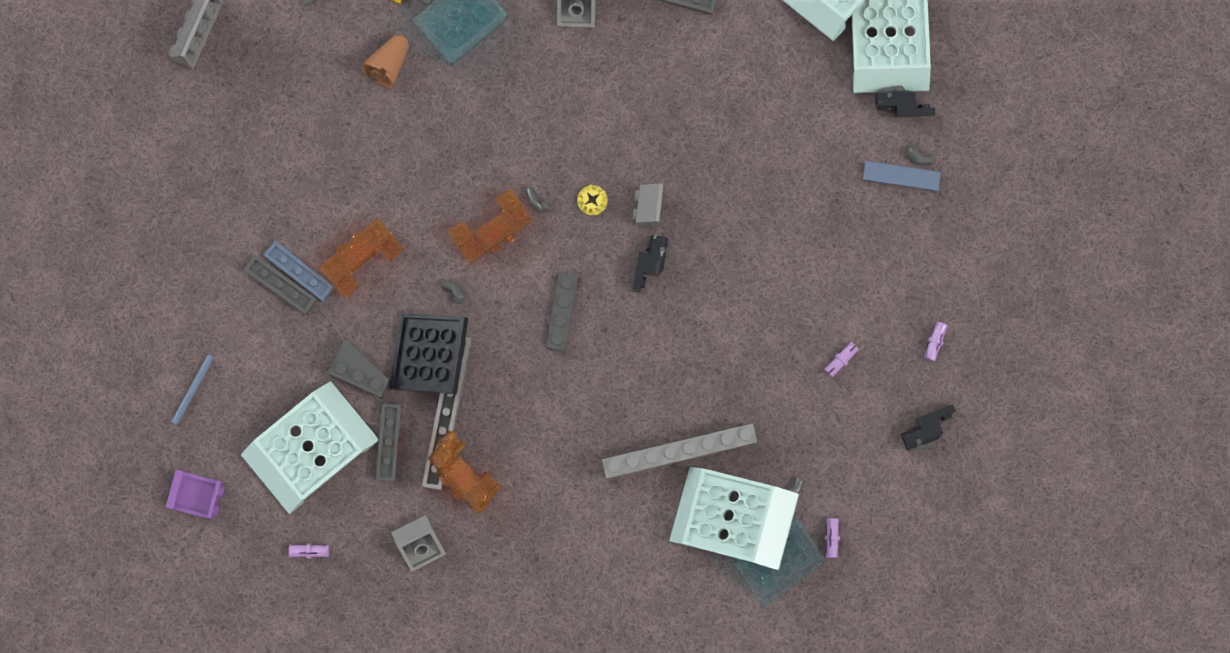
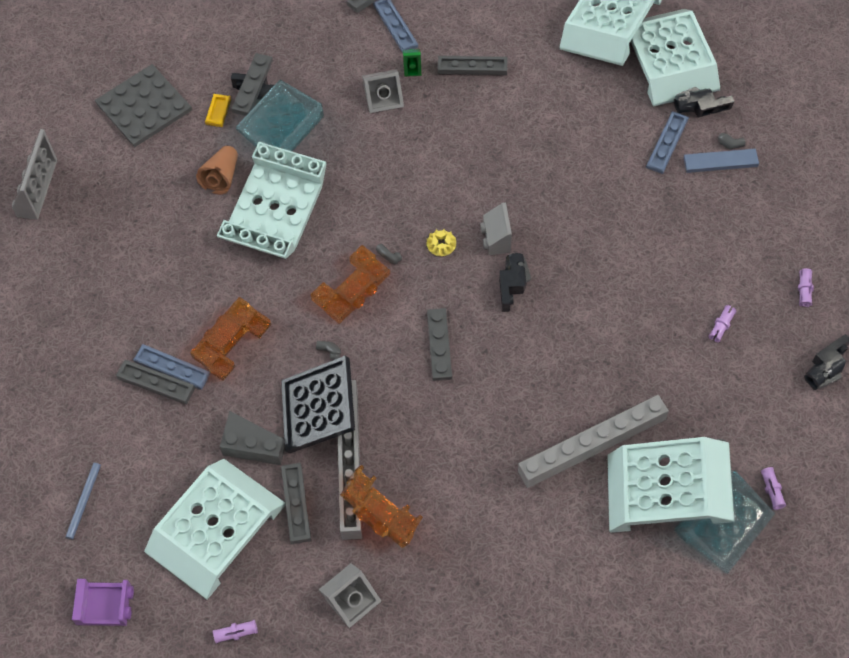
camera: 10 degrees left, 20 degrees down
(442, 89) = (281, 179): none -> light aqua slope
(854, 140) = (667, 142): none -> sand blue tile

